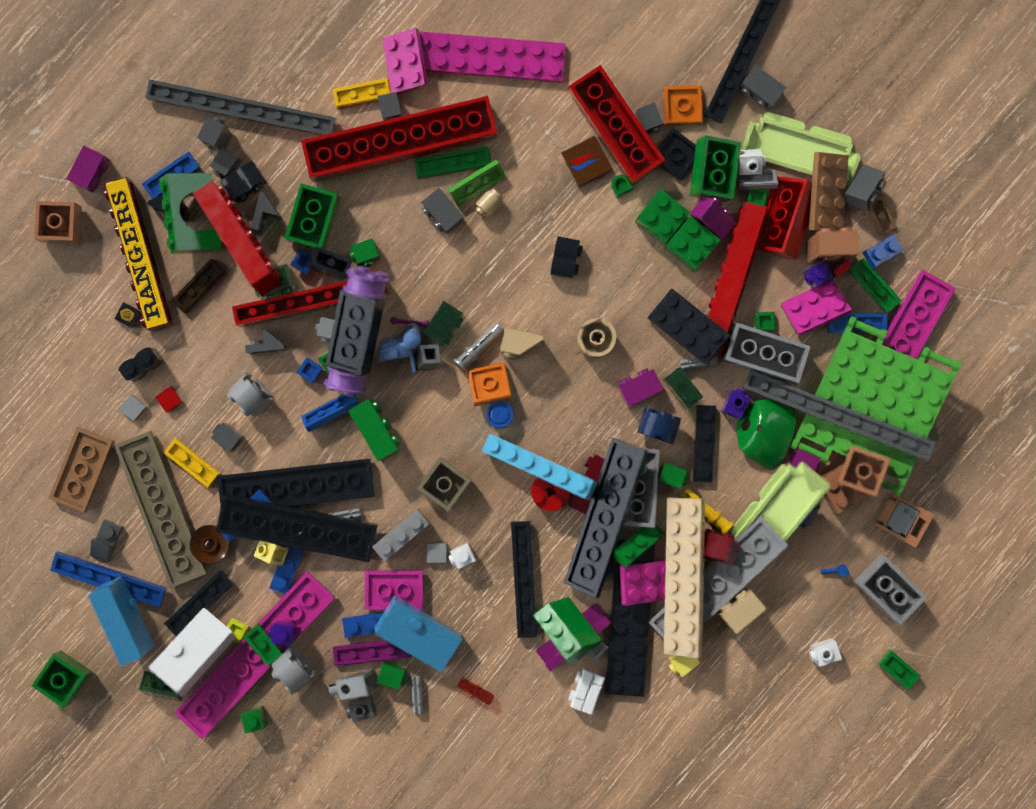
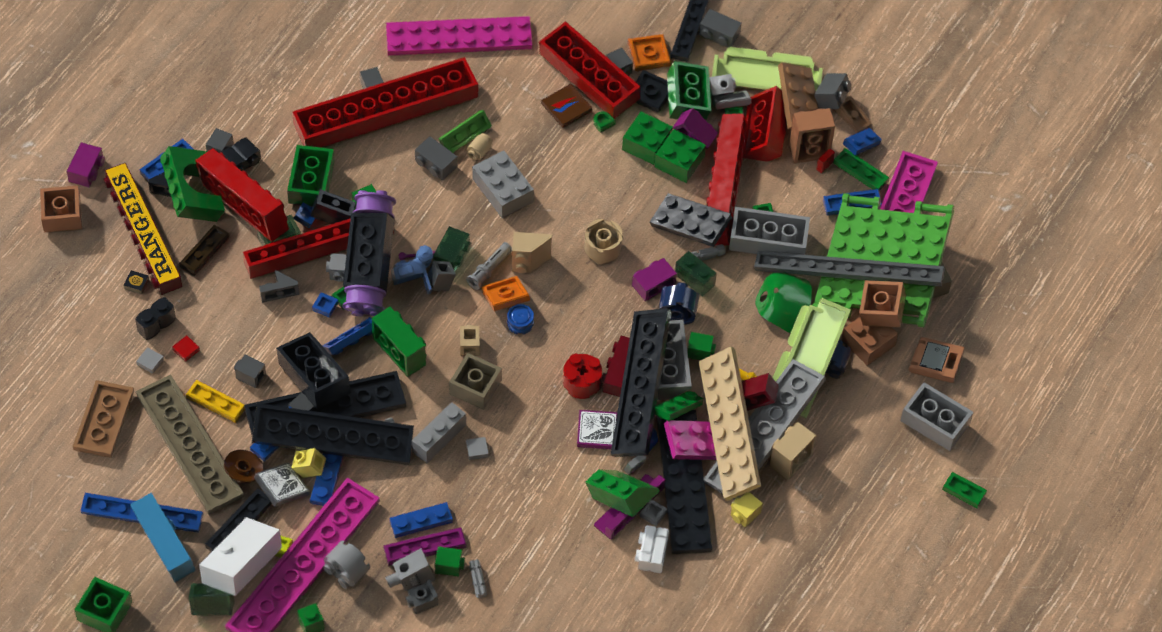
camera: 15 degrees left, 30 degrees down
(106, 540) = (134, 480): dark grey slope -> none
(214, 134) = (207, 118): dark grey brick -> none
(240, 108) = (223, 100): dark grey plate -> none
(243, 569) = (281, 484): none -> tile
(250, 395) = (270, 328): light grey brick -> none
(262, 645) = (311, 544): green plate -> none
(263, 208) = (265, 175): dark grey slope -> none
(272, 488) = (301, 402): none -> dark grey tile
(283, 633) = (331, 528): dark purple brick -> none
(286, 454) = (313, 370): none -> black brick
(360, 93) = (340, 78): yellow tile -> none
(384, 584) = (438, 484): dark pink plate -> none
(405, 61) = (381, 44): dark pink plate -> none
(418, 633) = (470, 513): dark azure brick -> none
(446, 439) = (469, 340): none -> tan brick
(452, 162) = (436, 121): green tile -> none
(462, 555) = (504, 443): white brick -> none
(475, 691) = (537, 566): clear red axle -> none
(506, 253) = (503, 184): none -> light grey brick
(523, 579) = (569, 459): black plate -> none
(539, 466) = (603, 351): medium azure arch -> none
(555, 548) = (596, 429): none -> tile
(565, 257) = (560, 182): black brick -> none
(583, 598) = (634, 464): none -> light grey tile
(704, 443) = (726, 318): black plate -> none
(736, 403) = (750, 281): dark purple brick -> none
(816, 308) = (809, 193): dark pink plate -> none
(817, 274) = (805, 166): dark purple brick -> none
(825, 652) = (886, 483): white brick -> none
(841, 569) = (887, 410): blue hand -> none

